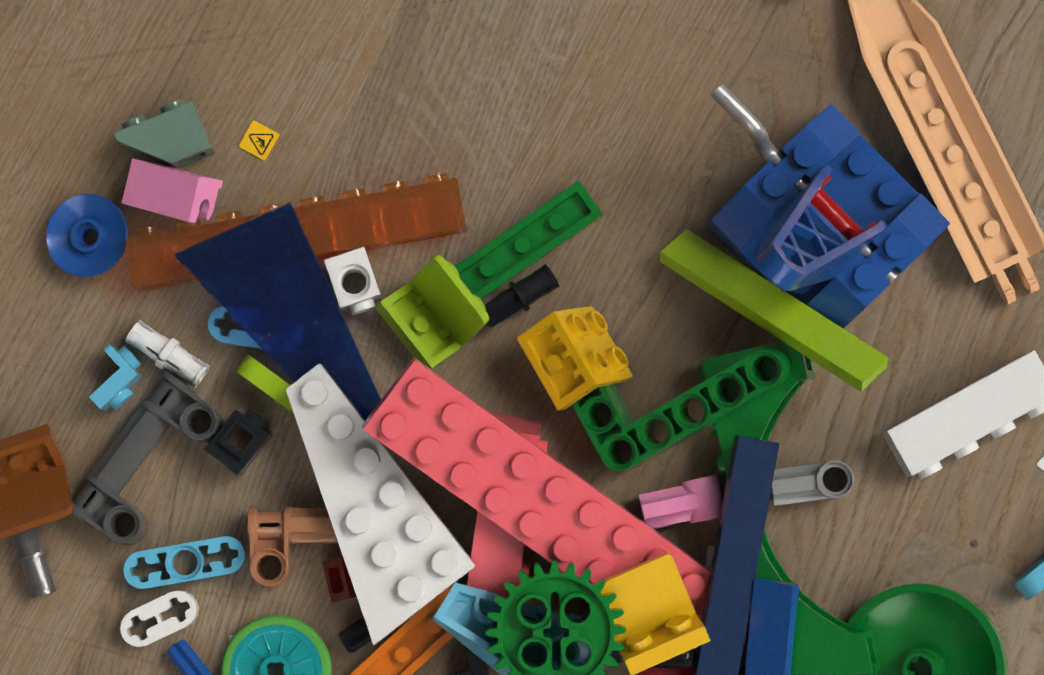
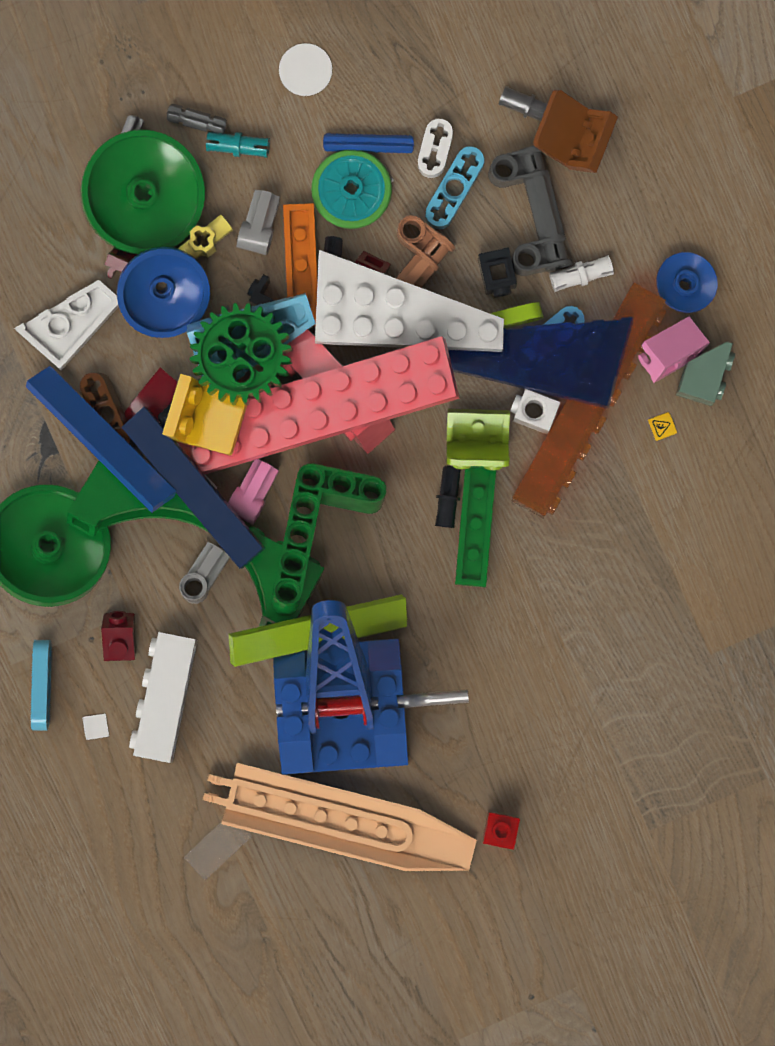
camera: 135 degrees right, 0 degrees up
(116, 389) = (584, 228): medium azure bracket -> none
(574, 354) = (387, 499): yellow bracket -> none
(948, 516) = (118, 636): none -> dark red bracket

